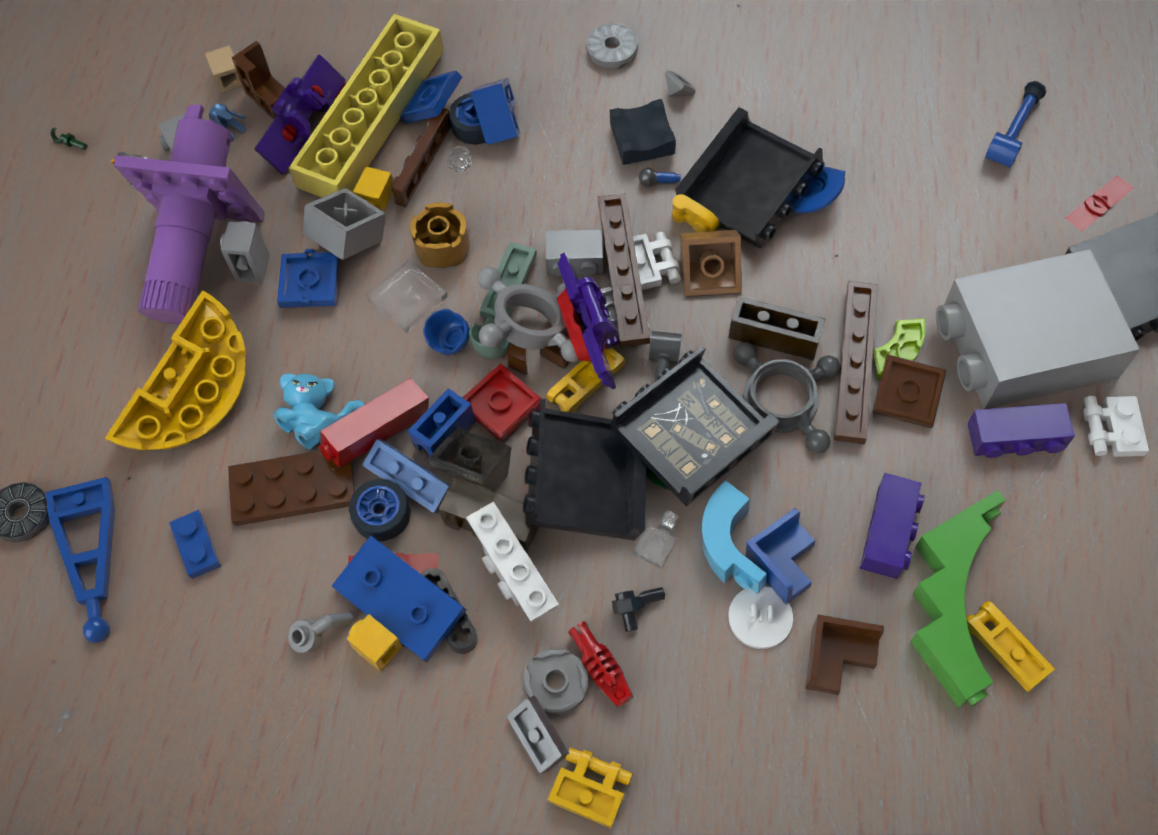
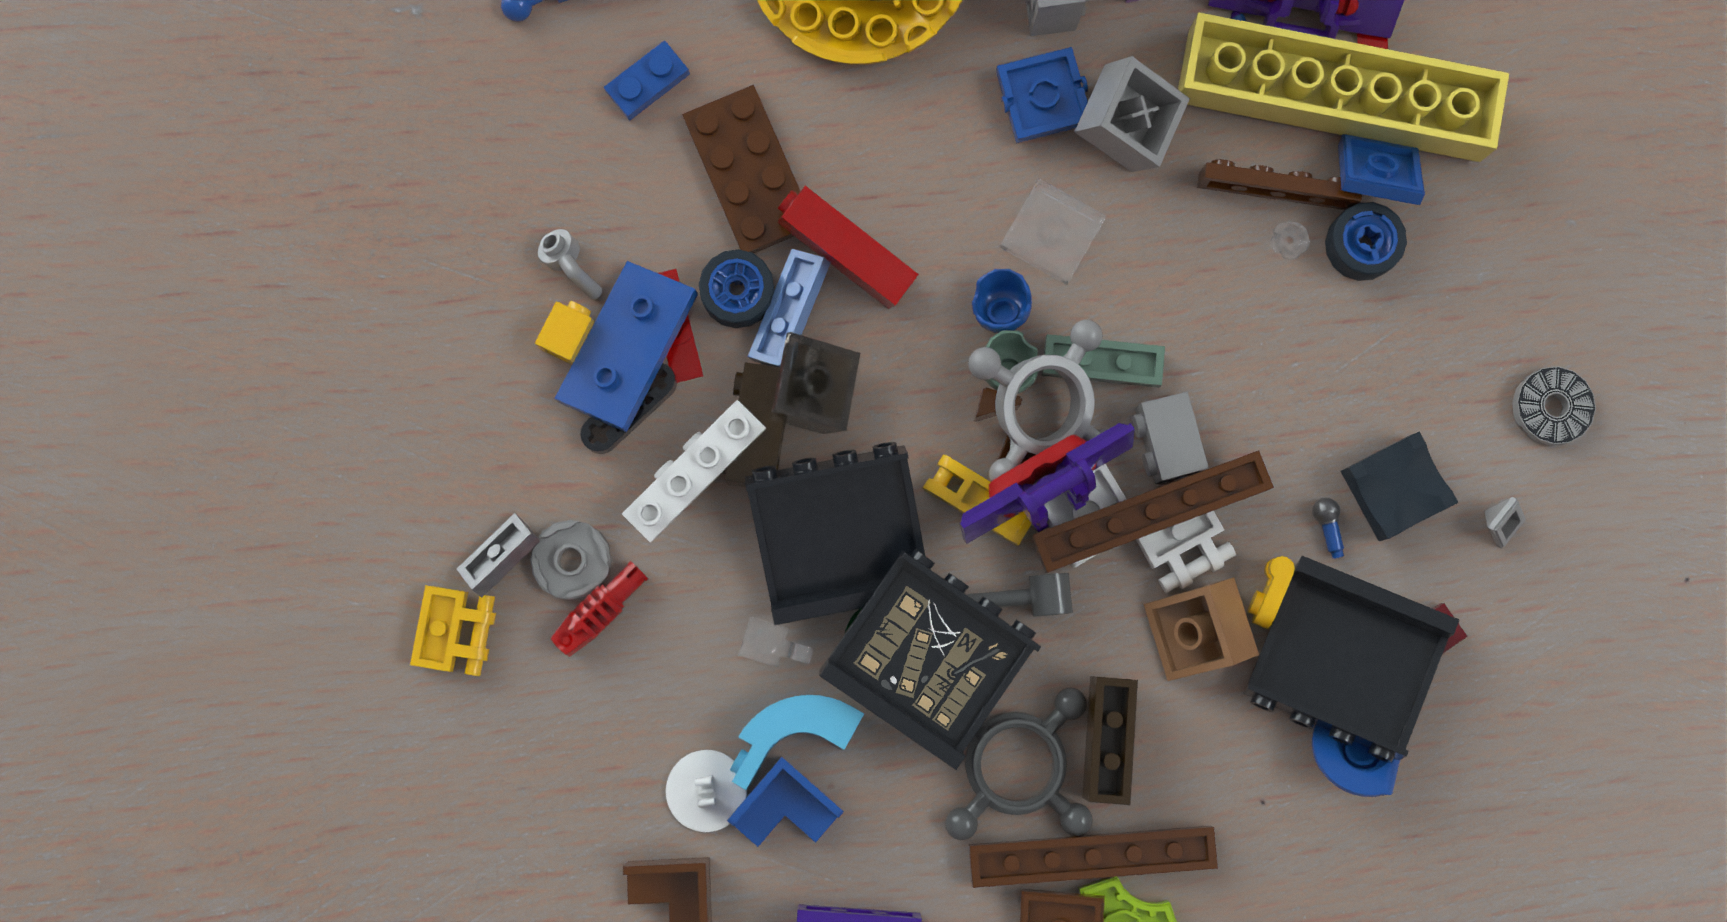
camera: 70 degrees right, 20 degrees up
(305, 396) = (870, 147): medium azure animal -> none
(375, 187) = (1204, 137): yellow brick -> none
(440, 235) = (1158, 230): pearl gold brick -> none
(440, 421) = (862, 332): blue brick -> none
(495, 111) = (1382, 264): blue panel -> none
(501, 402) = (920, 397): red plate -> none
(627, 604) = (681, 625): black piece -> none

